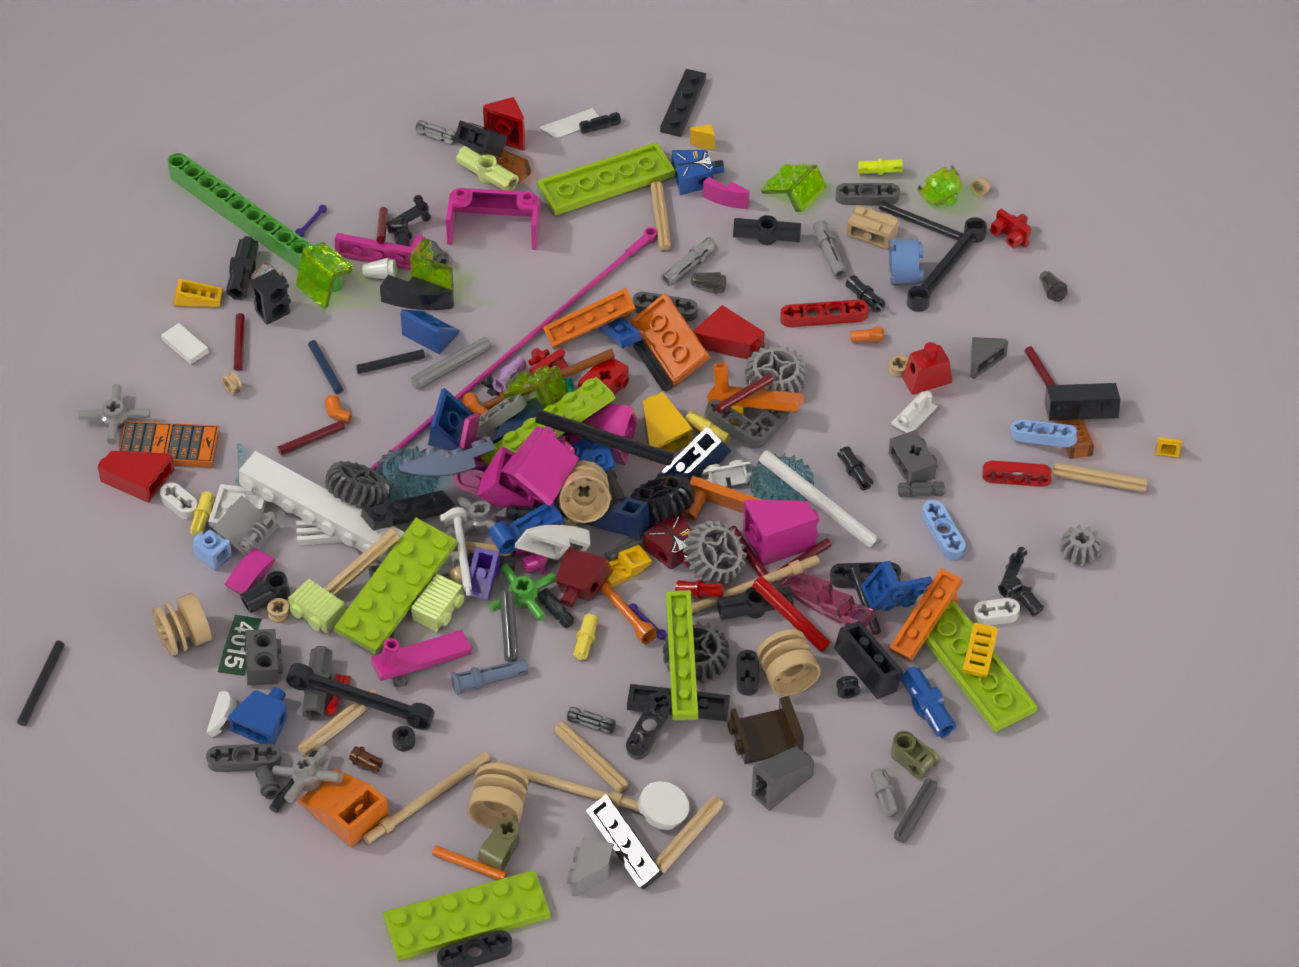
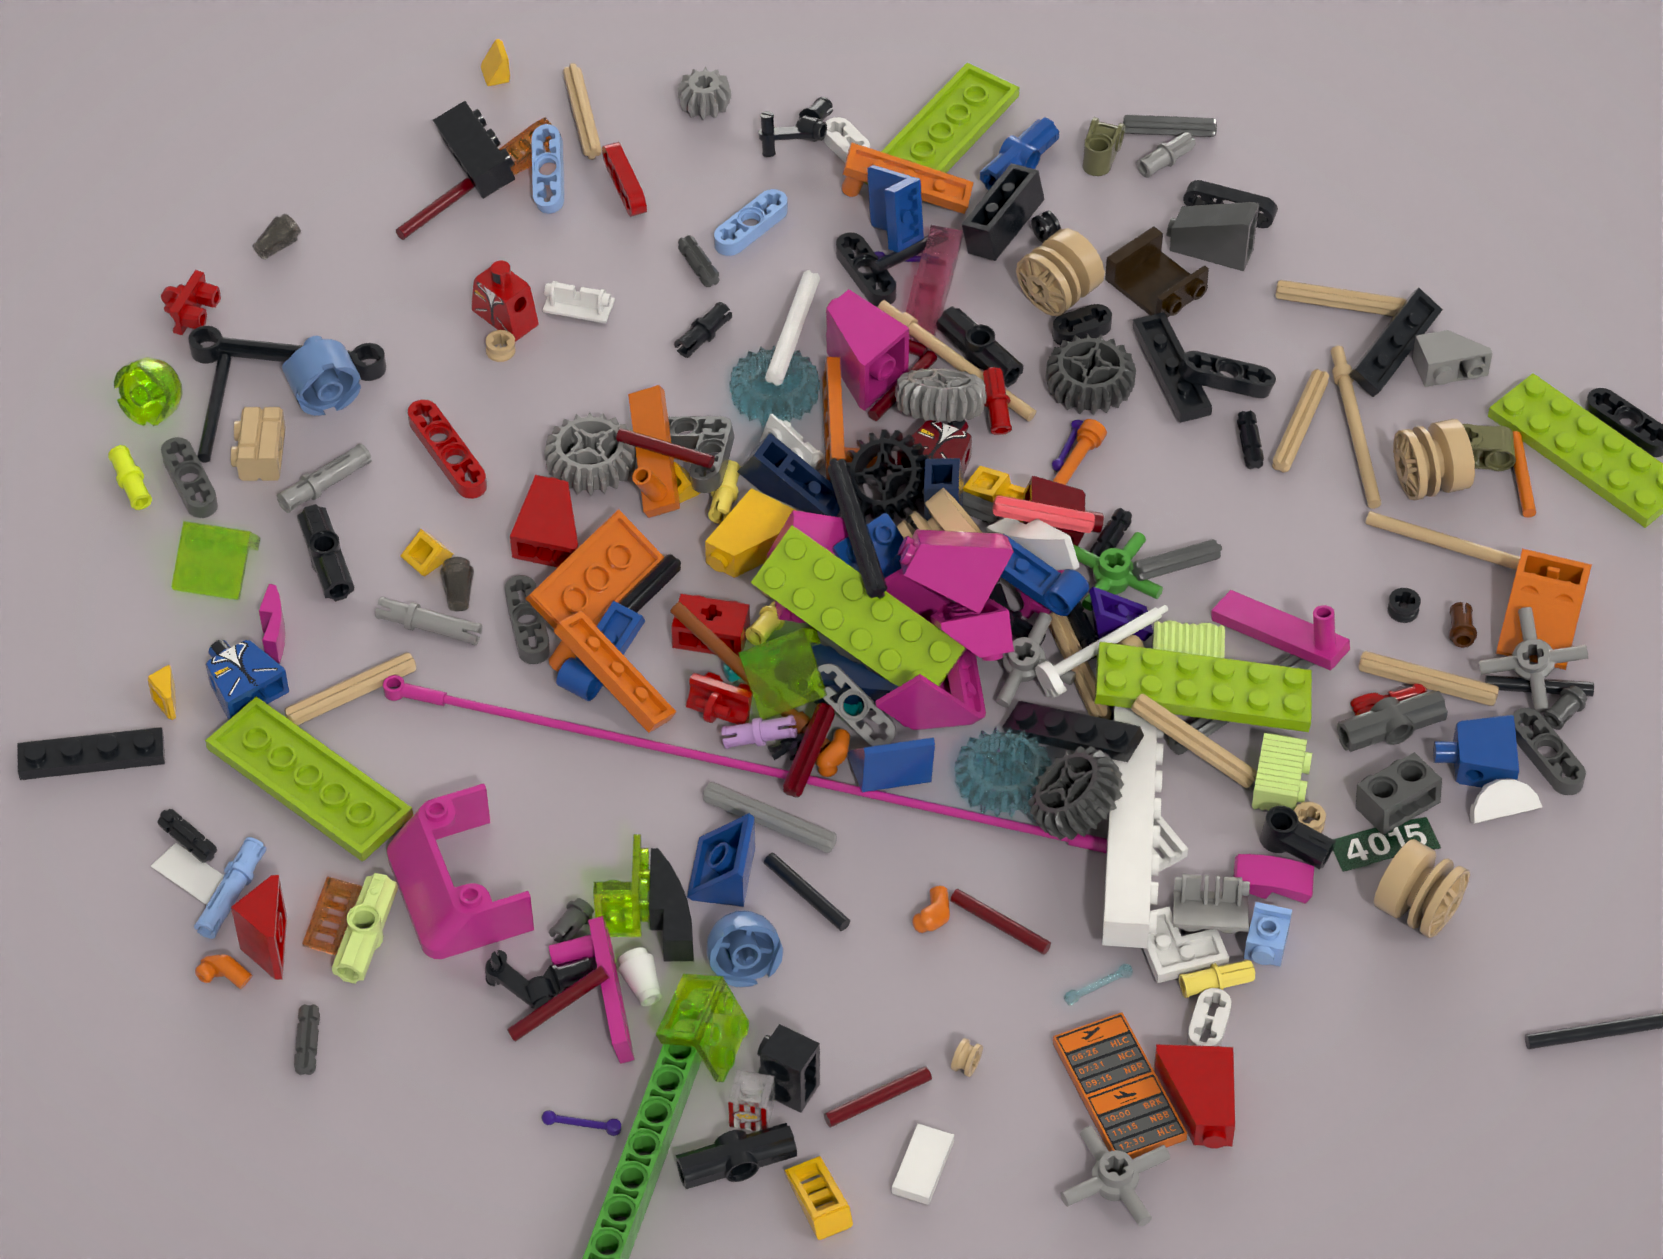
camera: 115 degrees left, 0 degrees up
(303, 677) = (1415, 704): black piece -> none
(326, 368) = (862, 965): dark blue bar -> none
(367, 311) = (744, 948): none -> medium blue cylinder
(436, 464) = (987, 696): sand blue slope -> none
(477, 386) = (808, 750): none -> dark red axle
(477, 677) = (1269, 566): sand blue pin -> none
(480, 138) = (315, 947): black brick -> none
(558, 133) = (236, 877): none -> light blue pin
(572, 552) = (1052, 515): none -> coral axle
(585, 636) = (1135, 488): light yellow axle -> none
(663, 805) = (1323, 326): white tile -> none
(681, 655) = (1123, 359): lime plate -> none
(746, 281) = (425, 553): none -> yellow slope
(789, 612) = (983, 297): red axle -> none
(812, 806) = (1211, 191): none -> black beam
(865, 293) = (390, 415): black pin -> none
(874, 335) = (468, 389): orange arm -> none
(912, 457) = (659, 277): dark grey brick -> none
(977, 190) = (115, 360): tan hinge -> none
(983, 635) = (917, 122): yellow slope -> none
(985, 354) = (444, 263): dark grey slope -> none

